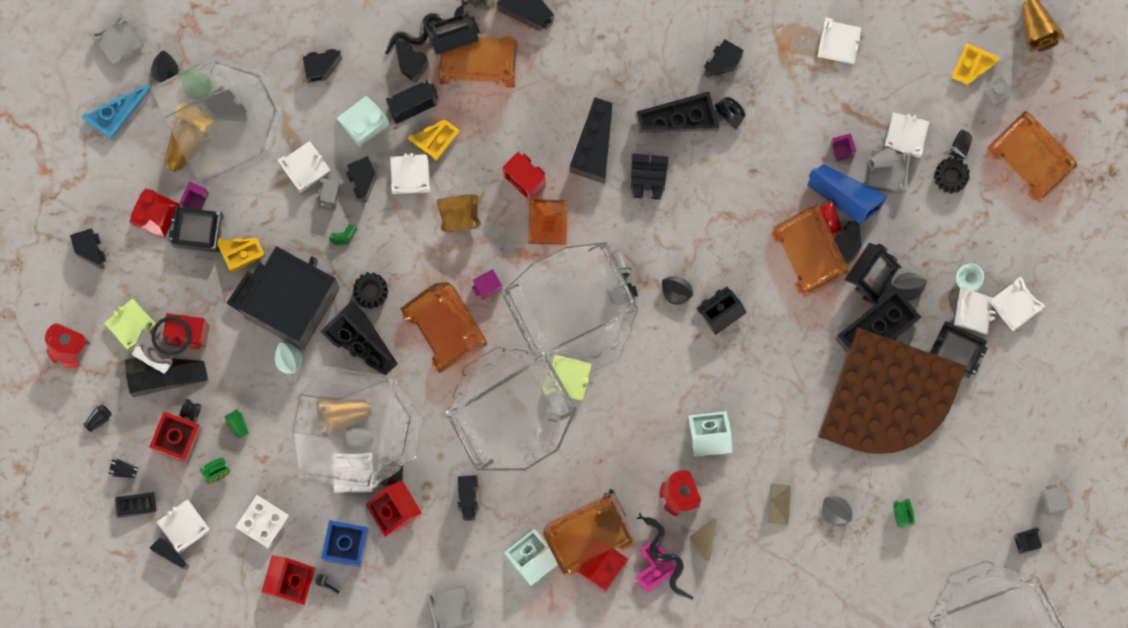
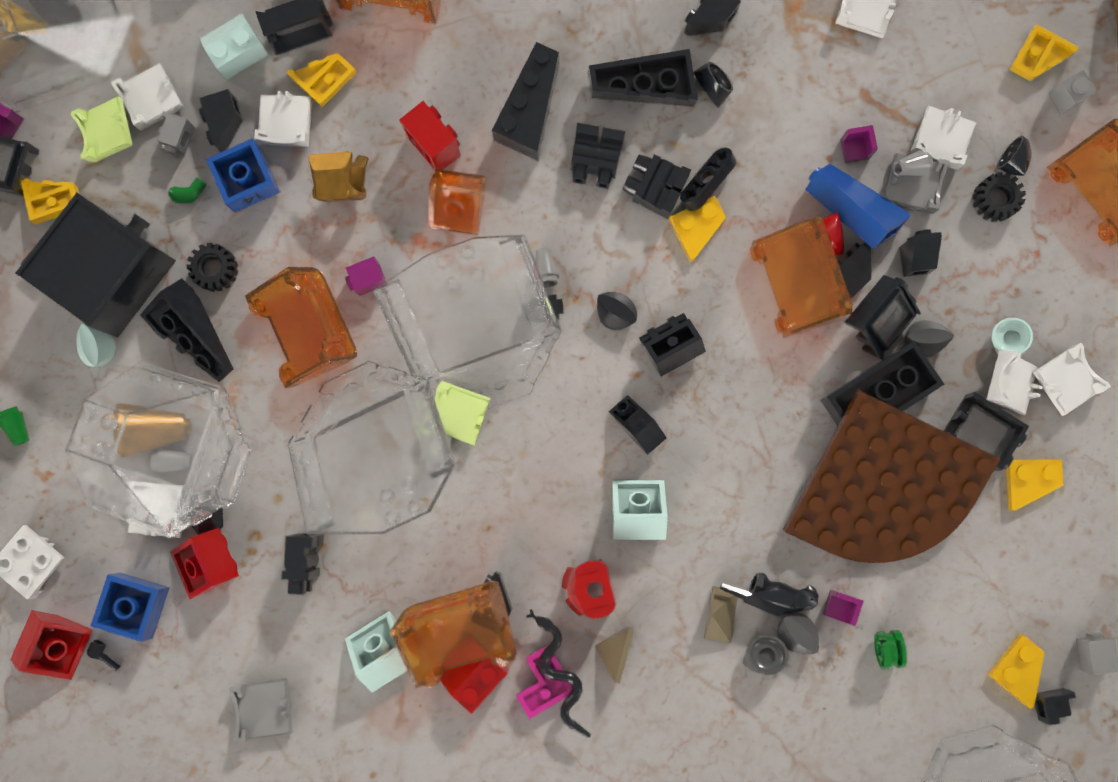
camera: 10 degrees right, 5 degrees up
(275, 195) = (103, 130): none -> yellowish green piece
(386, 219) = (243, 175): none -> blue brick
(698, 194) = (659, 185): none -> black hips
(702, 371) = (638, 424): none -> black slope
(727, 196) = (697, 191): none -> black beam
(730, 219) = (697, 226): none -> yellow wing
(815, 527) = (766, 655): none -> dark grey piece
(816, 485) = (775, 596): none -> black animal
(866, 487) = (843, 607): none -> magenta panel
(896, 223) = (920, 253): none -> black slope
(997, 380) = (1032, 480): none -> yellow wing
(1001, 519) = (1020, 670): none -> yellow wing

